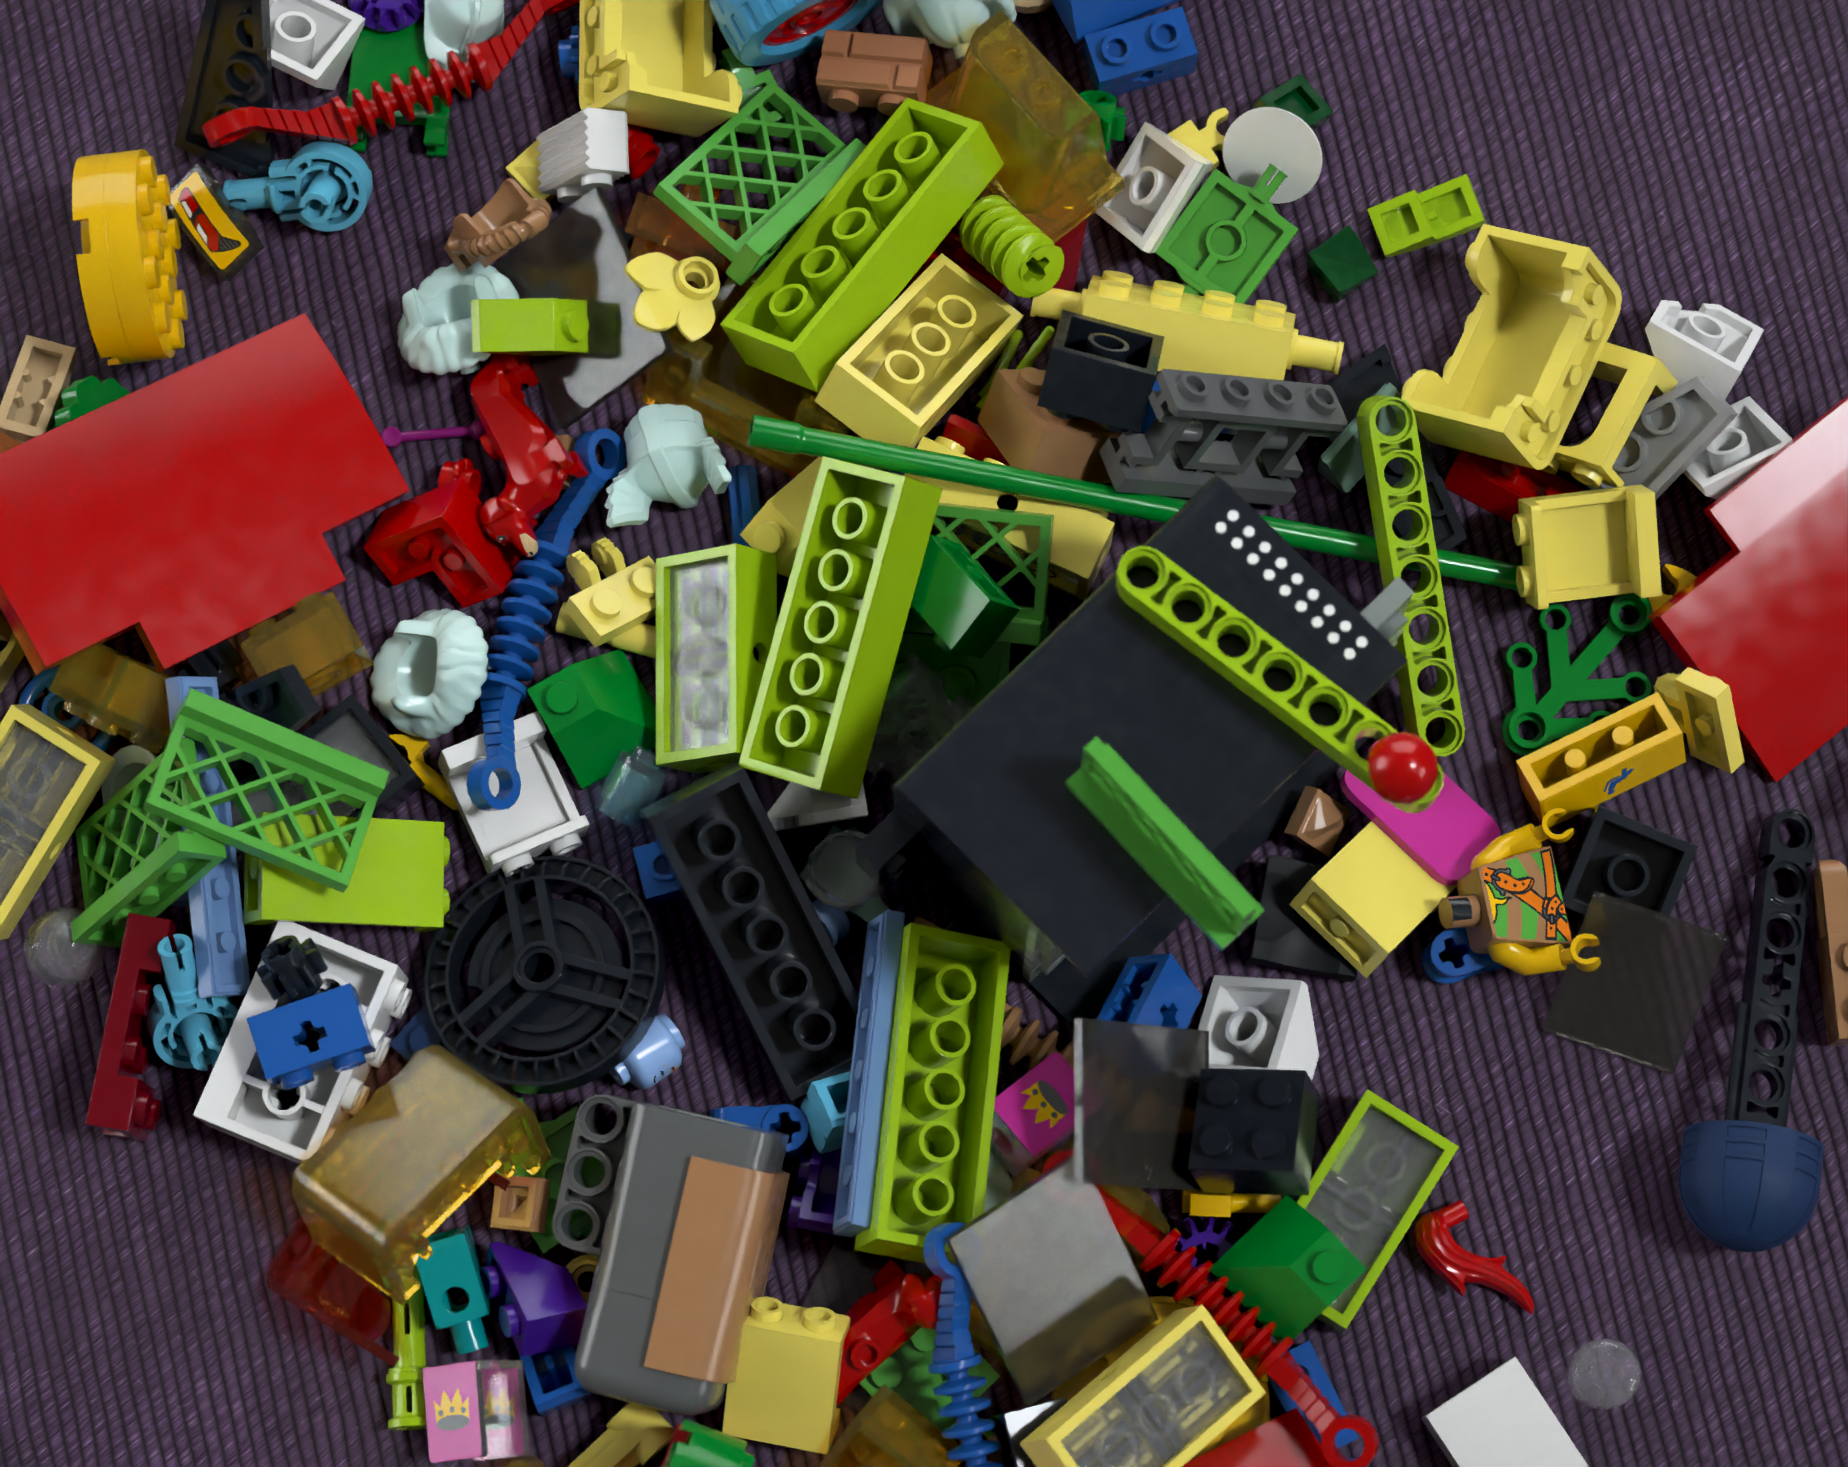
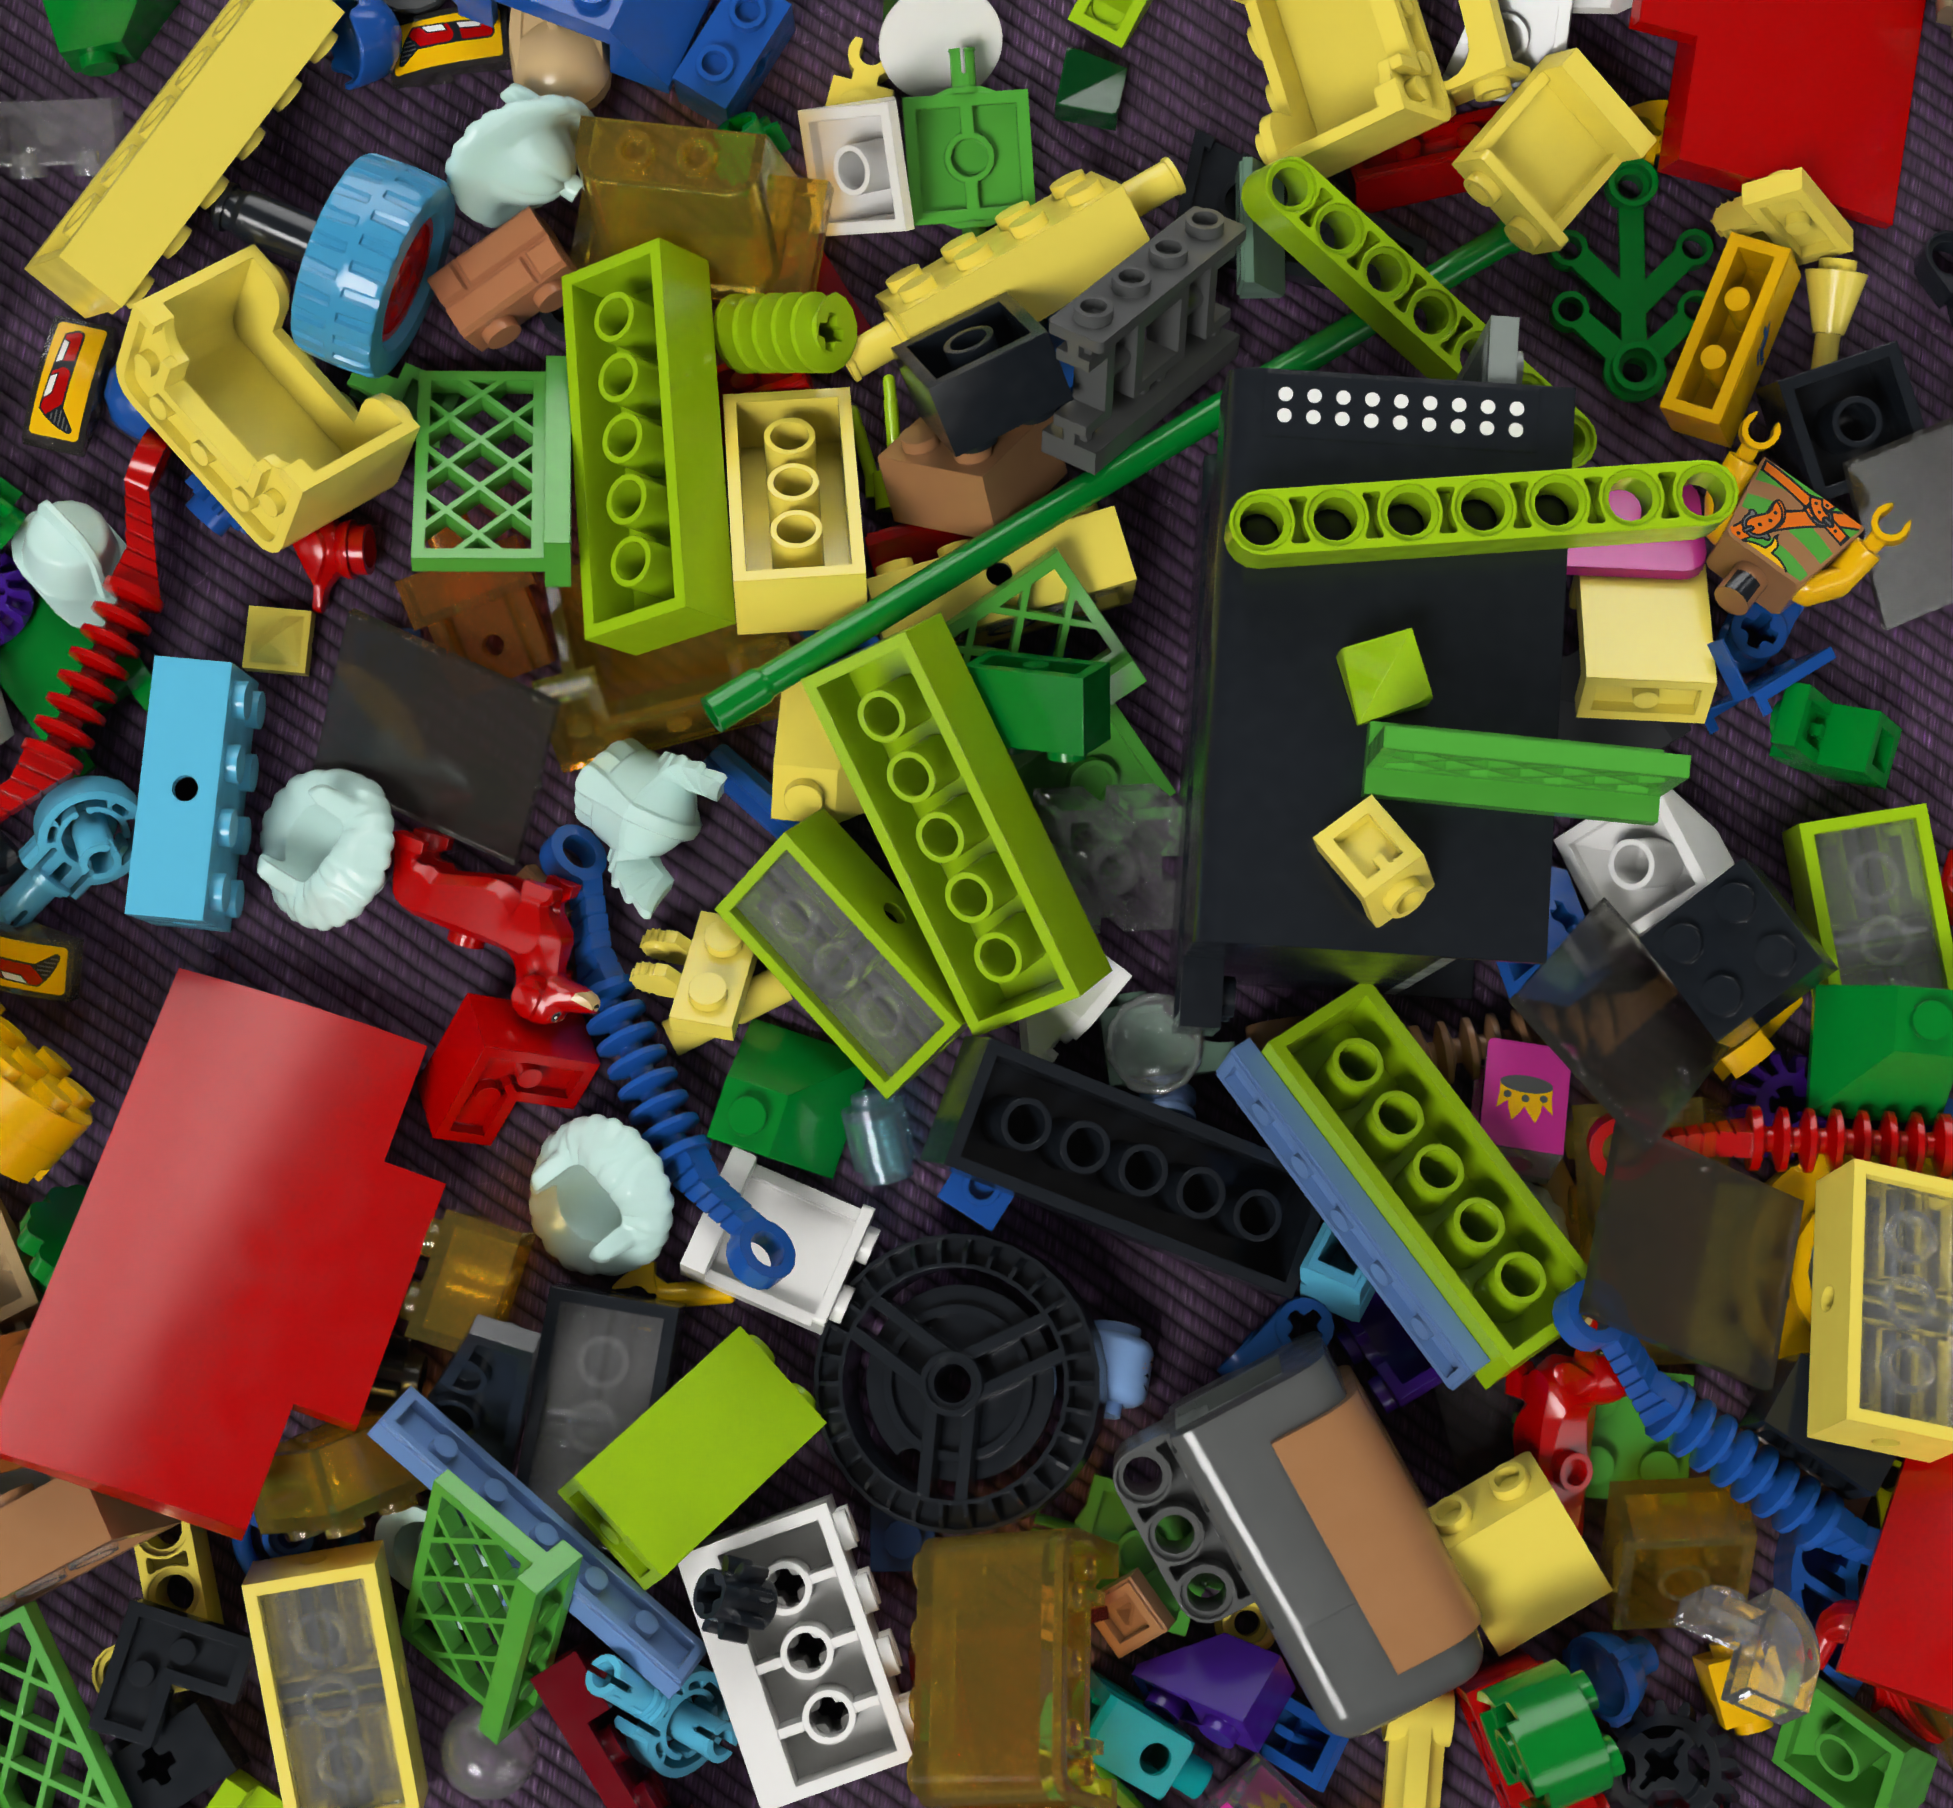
camera: 40 degrees left, 5 degrees up
(269, 750) = (542, 1406): bright green fence -> none
(283, 1028) = (778, 1671): blue brick -> none
(393, 437) = (365, 1009): magenta hinge -> none
(404, 218) = (194, 794): none -> medium azure brick
(462, 469) = (458, 984): red plate -> none
(497, 226) = (288, 729): medium nougat piece -> none
(529, 326) = (404, 797): lime slope -> none
(583, 153) = (308, 591): white brick -> none
(668, 297) = (516, 656): light yellow plate -> none
(1036, 827) = (1376, 861): none -> light yellow bracket
(1138, 725) = (1384, 676): none -> lime slope
(1402, 768) = (1693, 493): red piece -> none
(1408, 985) = (1764, 685): none -> blue piece
(1442, 1060) = (1832, 738): none -> green brick
(1694, 794) = (1832, 299): none -> light yellow cone

